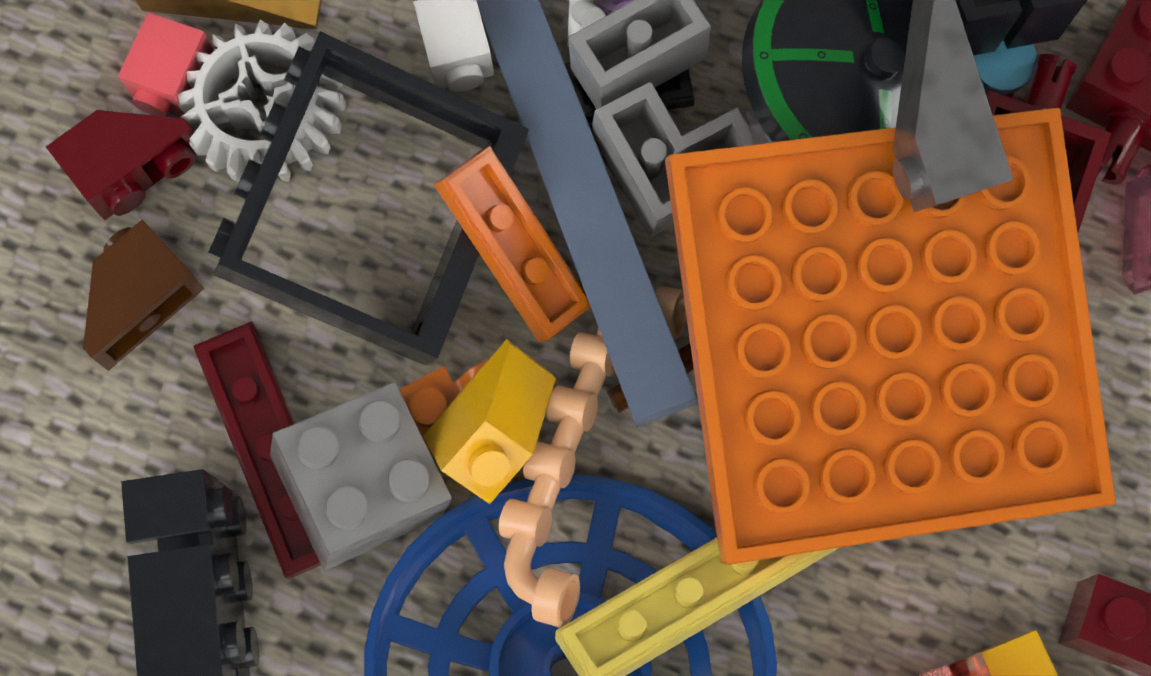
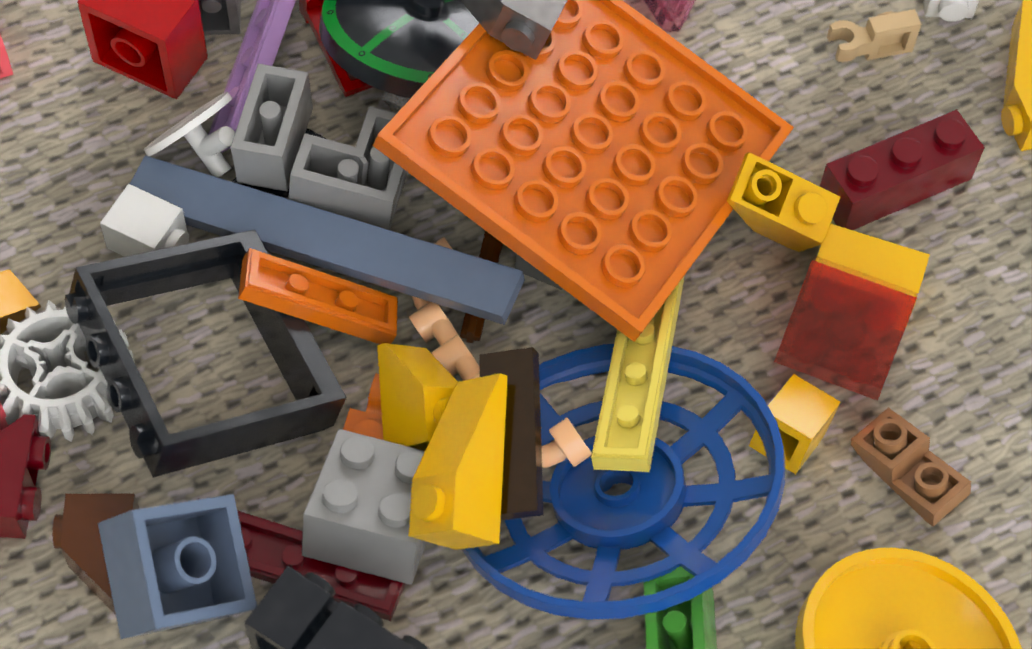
camera: 55 degrees left, 15 degrees down
(146, 373) = (176, 565): none -> sand blue brick
(429, 531) = (461, 472): none -> yellow slope
(512, 539) = (522, 444): none -> dark brown tile
(1010, 569) = (782, 204): none -> yellow slope

